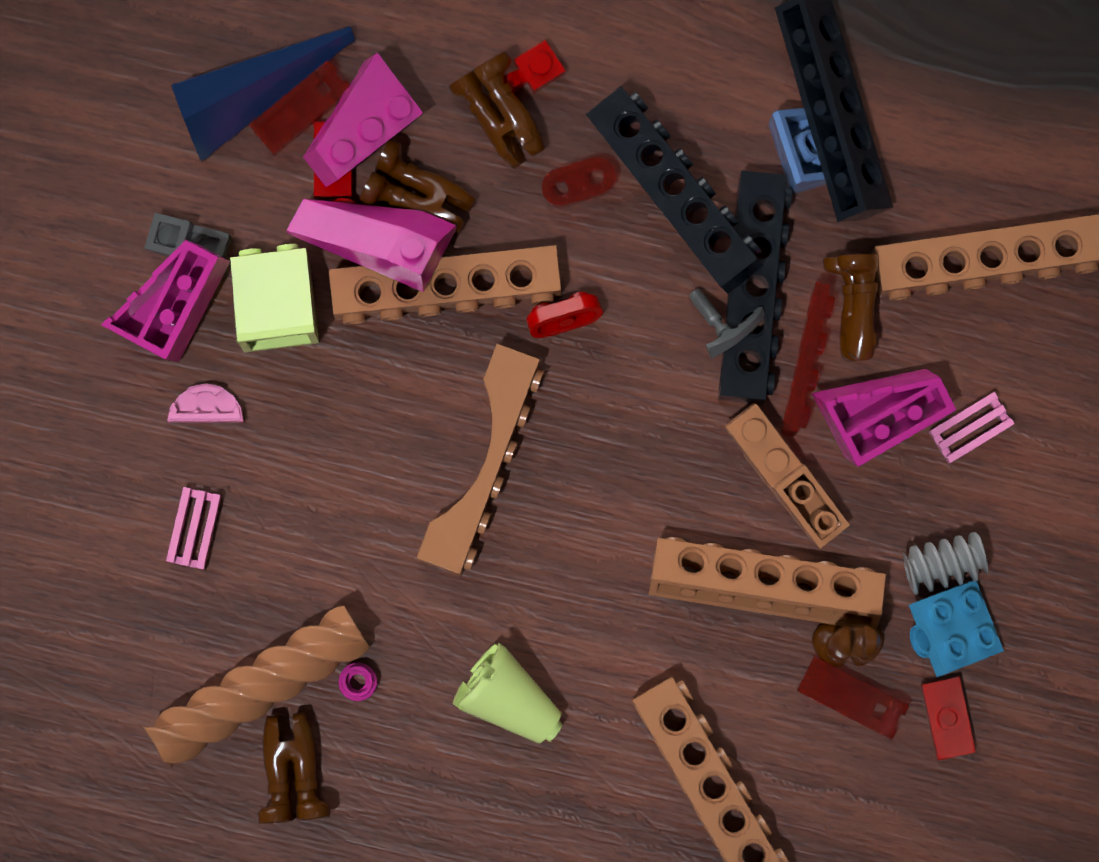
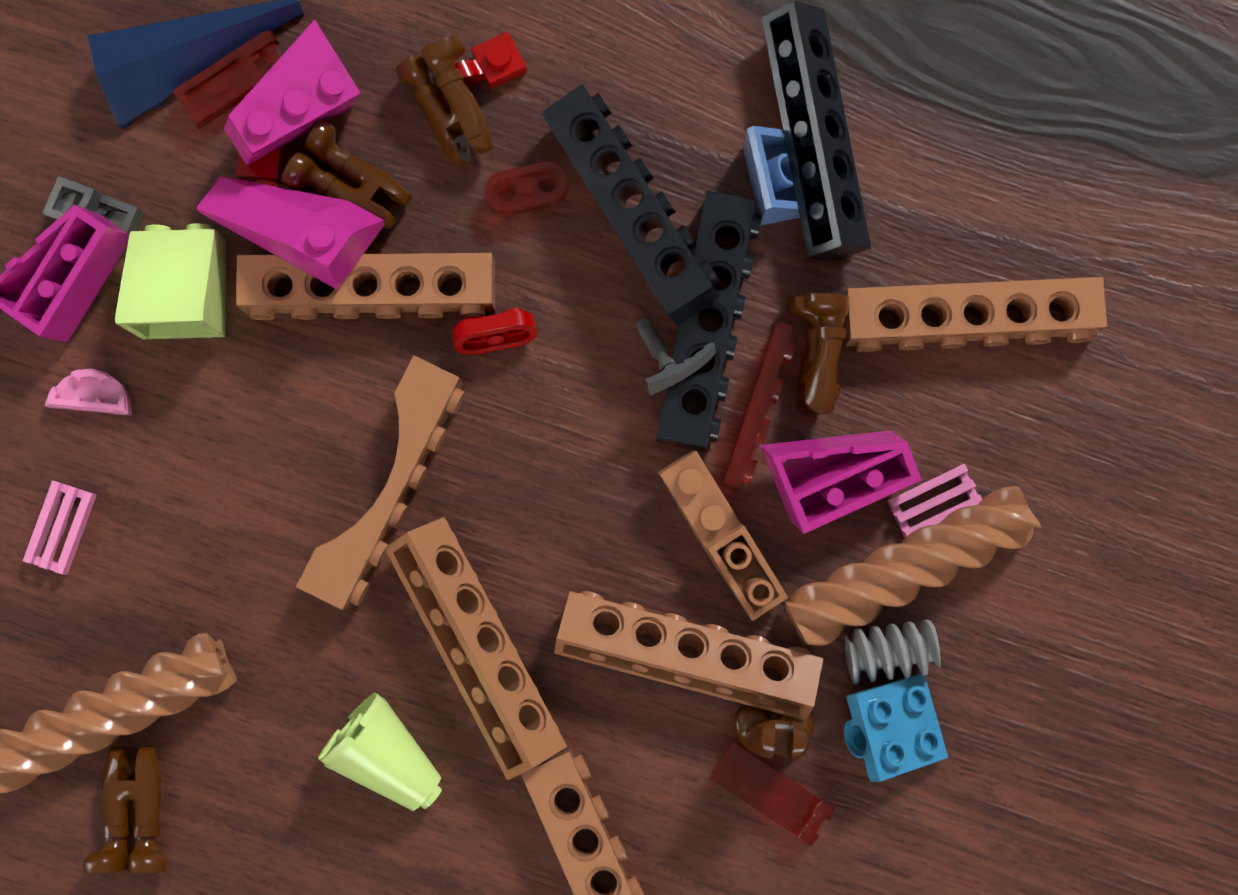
camera: 10 degrees right, 0 degrees up
(345, 681) = (206, 718): dark pink plate -> none
(579, 595) = (475, 648): none -> nougat brick
(944, 491) = (898, 571): none -> nougat piece
(948, 718) = (877, 827): red plate -> none

